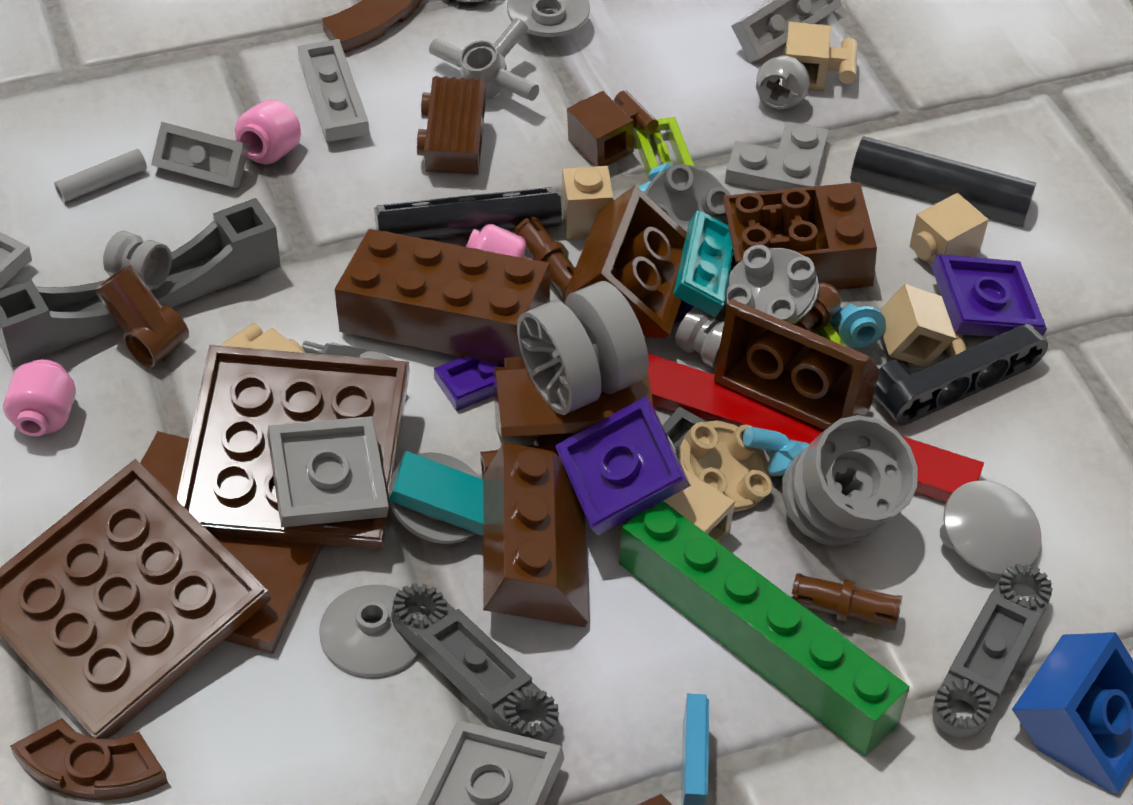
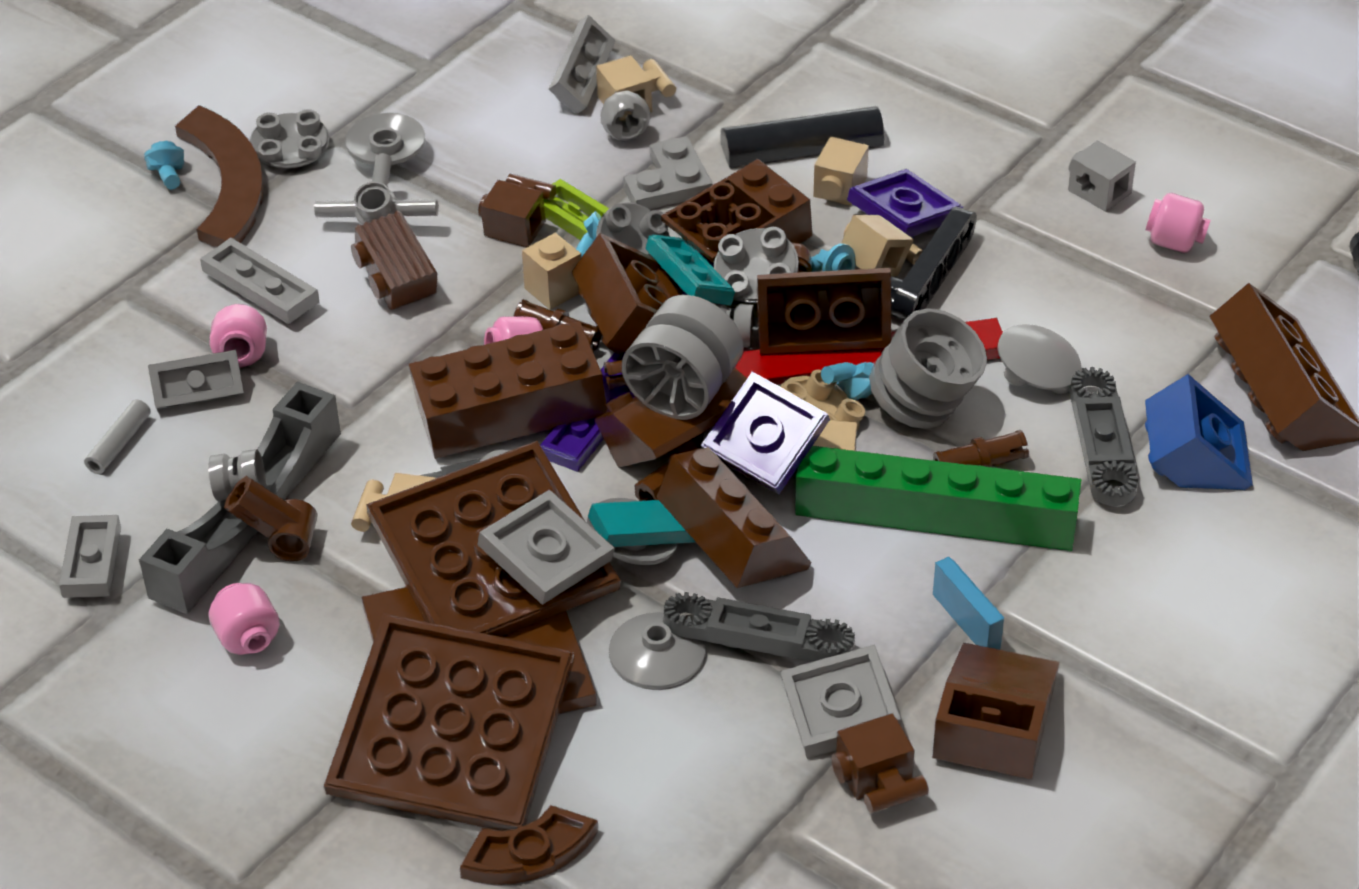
camera: 30 degrees left, 5 degrees down
(463, 214) = (462, 323): black brick -> none

